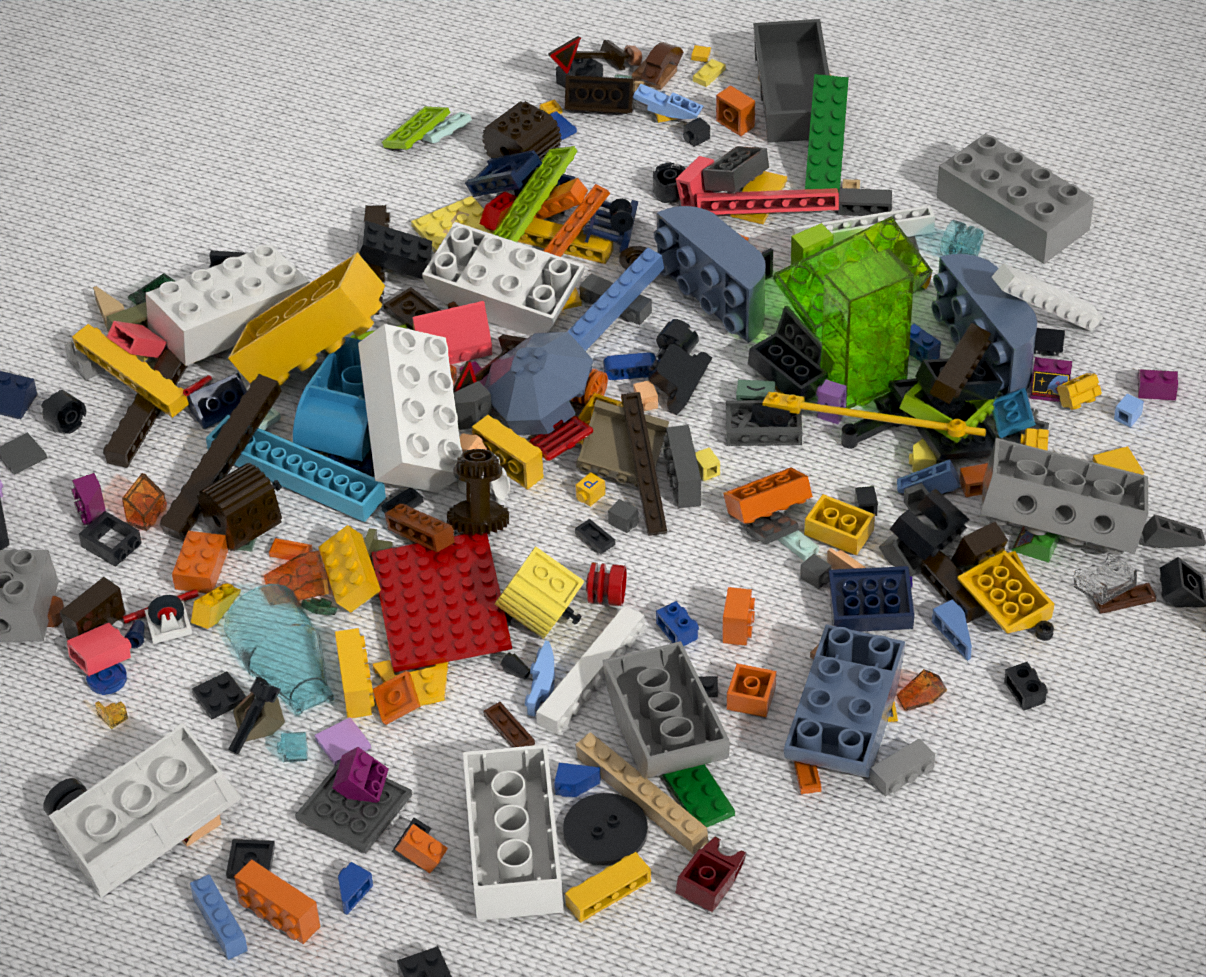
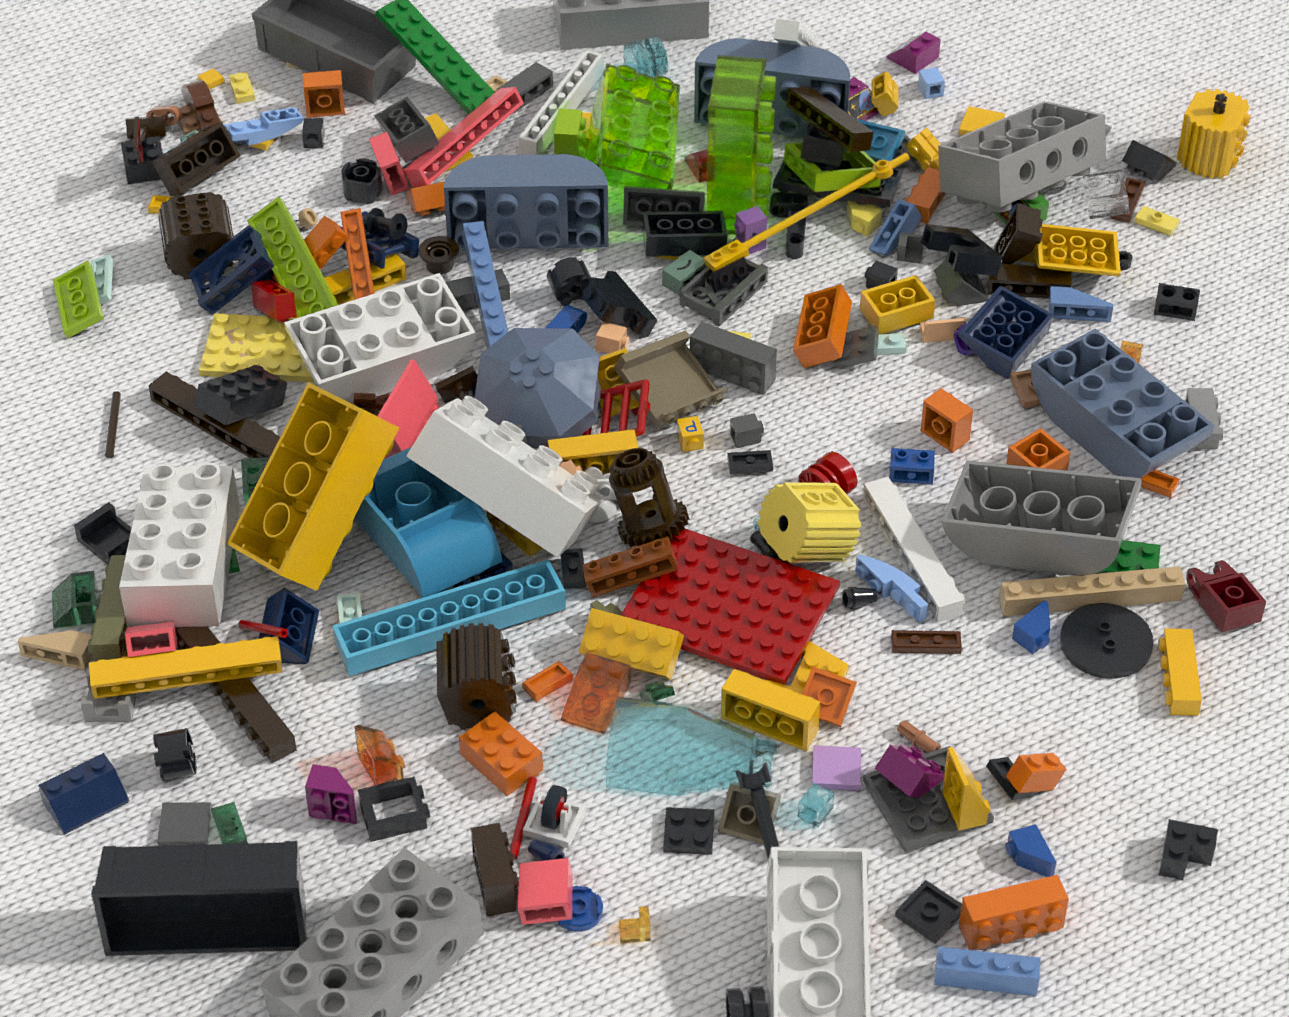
camera: 55 degrees left, 0 degrees up
(34, 473) = (229, 824): none -> clear green plate
(213, 605) = (569, 772): yellow slope -> none
(221, 455) = (392, 659): dark brown brick -> none
(326, 214) = (113, 421): none -> dark brown bar
(354, 810) = (963, 793): none -> yellow slope
(408, 769) = (917, 737): none -> nougat axle
(512, 832) = (1084, 692): white brick -> none
(608, 181) = (307, 218): none -> tan tile
(644, 464) = (711, 376): dark brown tile -> none
(815, 571) = (933, 349): dark grey brick -> none
(1117, 628) = (1157, 220): none -> light yellow plate

